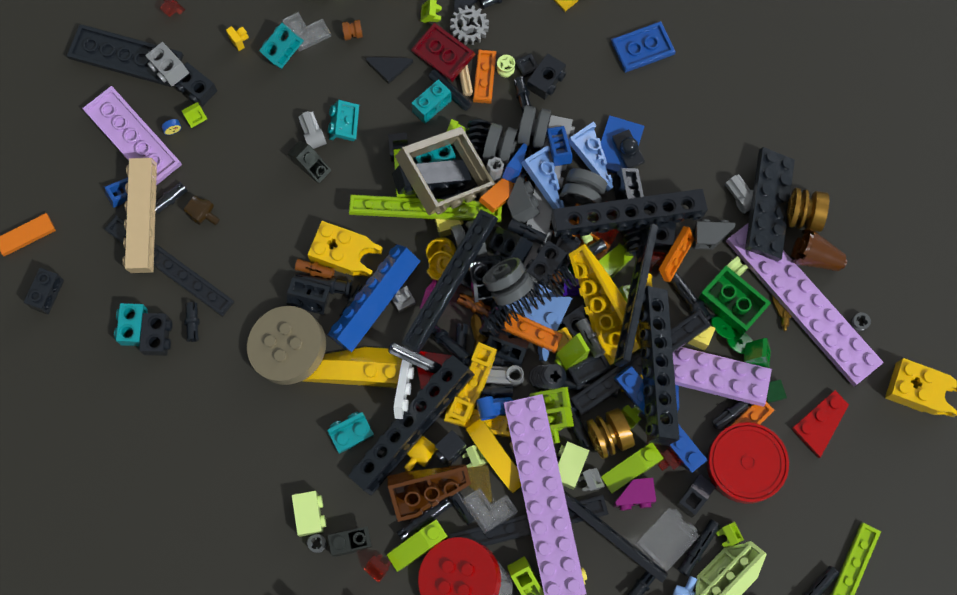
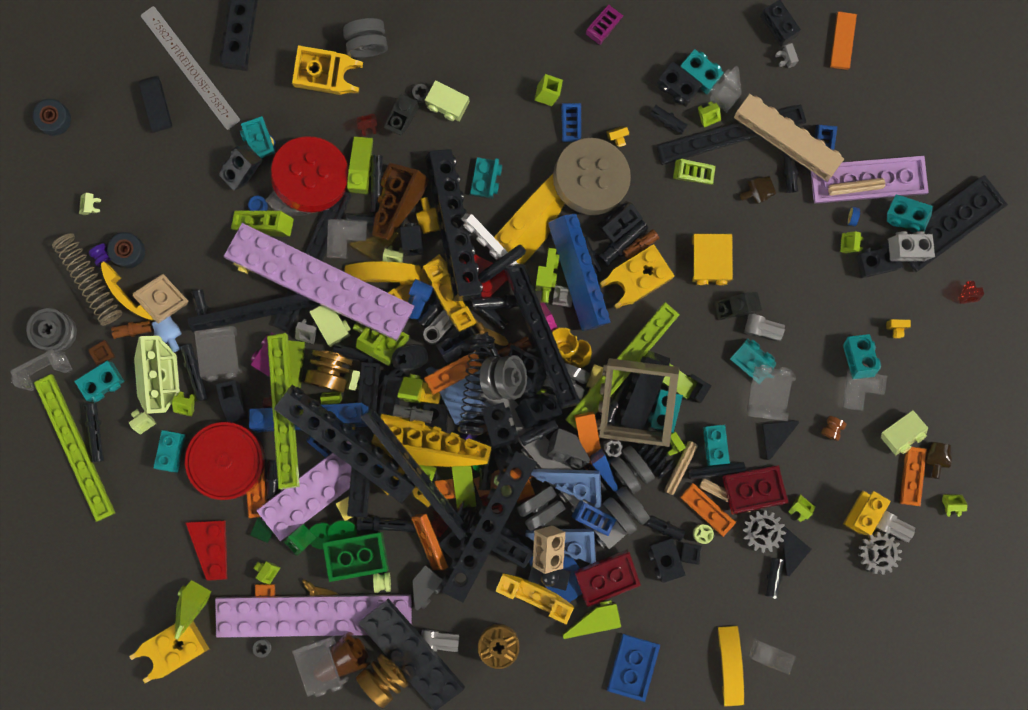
camera: 125 degrees right, 10 degrees up
(68, 264) = (789, 55): none -> light grey tile
(132, 291) = (728, 91): none -> clear slope
(134, 88) = (911, 210): none -> teal brick
(145, 138) = (857, 186): none -> tan axle
(160, 434) = (594, 35): none -> magenta slope
(165, 292) = (709, 114): none -> lime tile
(227, 282) = (684, 176): none -> lime slope
(234, 352) = (618, 134): none -> yellow tile
(237, 434) = (548, 90): none -> lime brick
(241, 413) = (577, 106): none -> blue slope
(284, 205) = (712, 258): none -> yellow panel
(361, 90) = (770, 392): none -> clear panel
(398, 318) = (546, 277): none -> lime plate
(464, 117) = (680, 468): none -> tan axle
(594, 108) = (607, 578): none -> dark red tile
(600, 410) = (352, 380): none -> yellowish green tile
(610, 158) = (548, 549): none -> tan brick
(624, 275) = (446, 487): none -> orange tile
(632, 94) = (598, 619): none -> lime slope
(649, 147) = (537, 595): none -> yellow slope
(658, 454) = (283, 428): none -> lime tile
(704, 154) = (488, 640): none -> pearl gold wheel
(773, 558) = (141, 421): none -> yellowish green tile
(777, 514) = (169, 451): none -> teal brick
(803, 362) = (266, 571): none -> lime tile
(817, 354) = (265, 590): none -> orange tile
(838, 265) = (318, 668): none -> clear panel
(881, 397) = (190, 603): none -> lime slope

